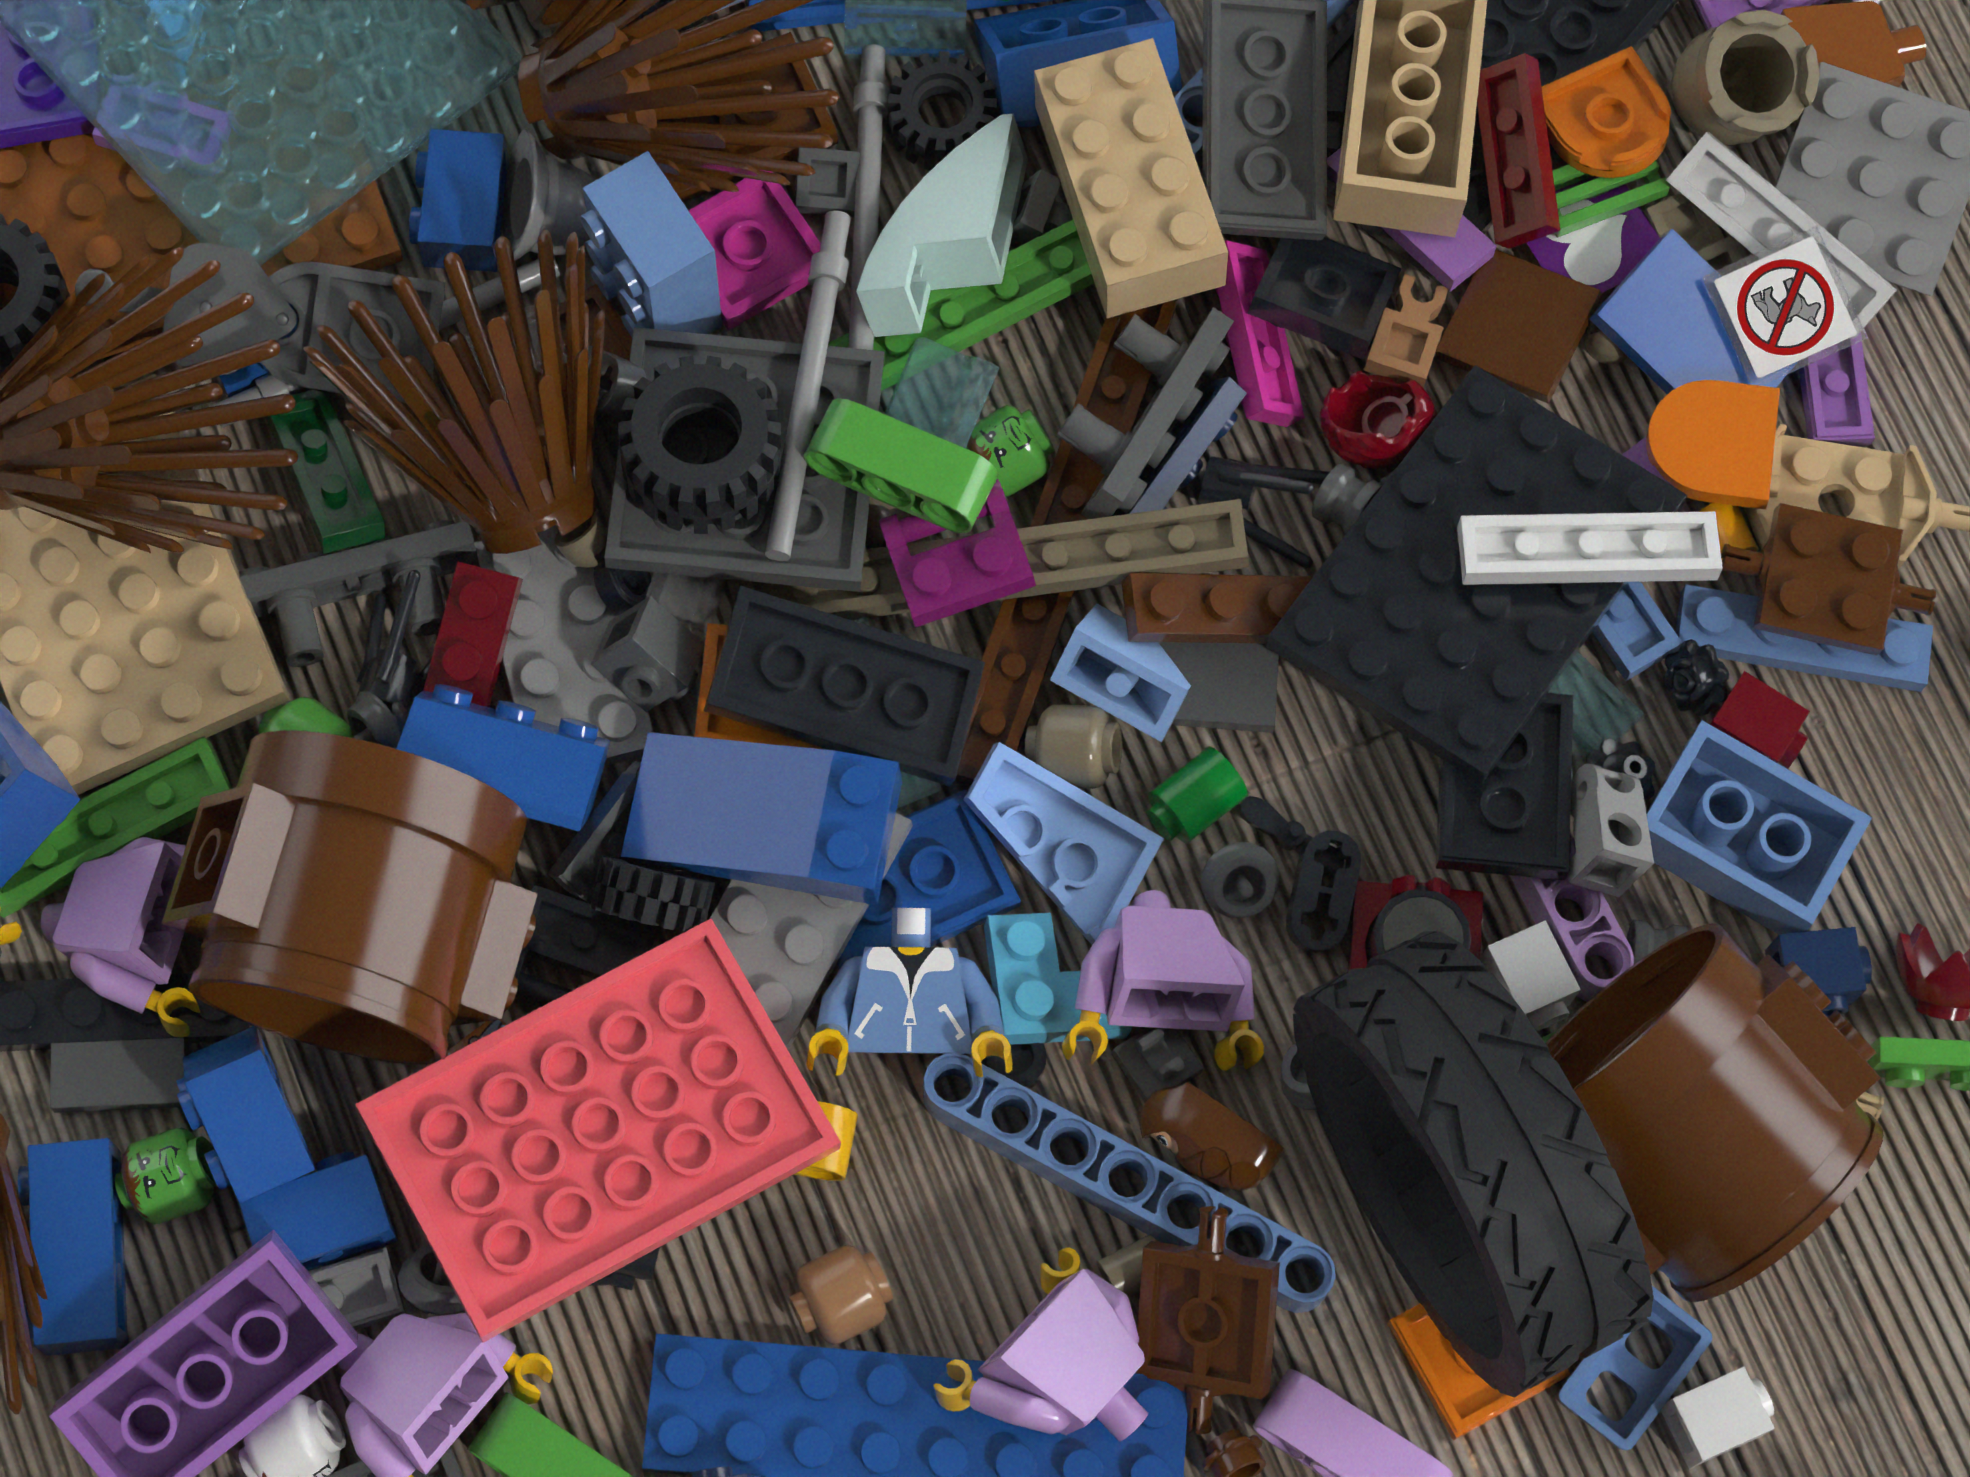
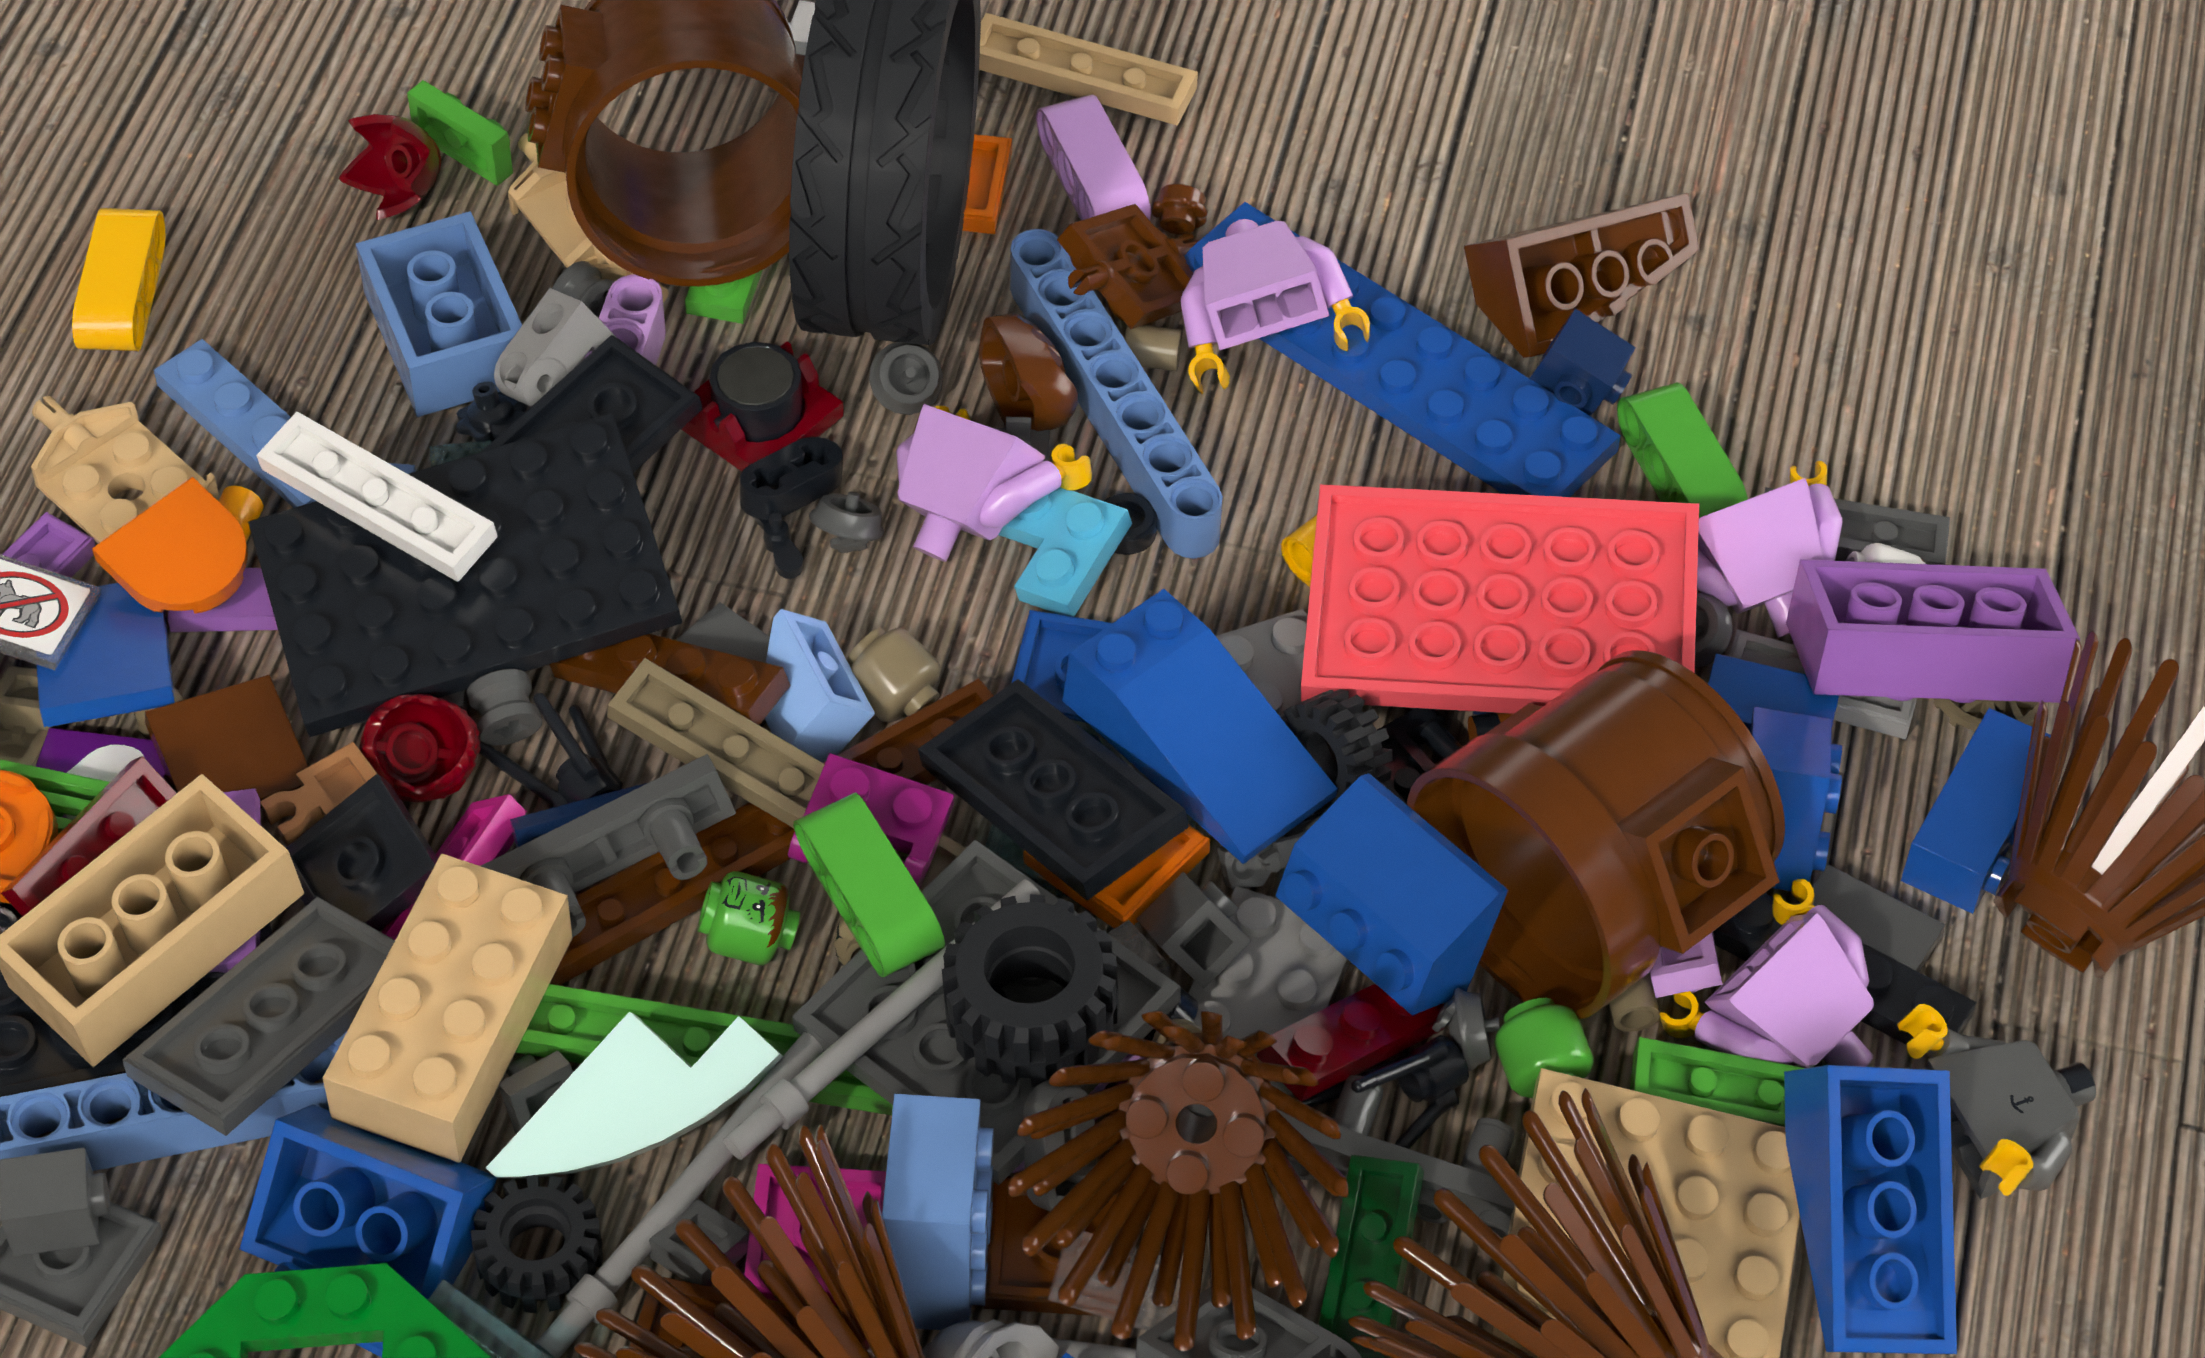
camera: 140 degrees left, 20 degrees down
(166, 1176) = (1875, 814): bright green head -> none
(841, 1294) = (1387, 444): medium nougat head -> none
(910, 1001) = (1195, 567): medium blue torso -> none
(942, 391) = (771, 964): clear light blue panel -> none
(1063, 837) = (960, 614): light blue wing -> none
(1195, 796) = (831, 587): green brick -> none
(1533, 974) = (692, 335): white brick -> none
(1695, 677) = (369, 430): black plant -> none
(1763, 720) = (359, 384): dark red brick -> none
(1828, 579) = (202, 417): reddish brown plate -> none
(1830, 960) = (499, 214): dark blue brick -> none

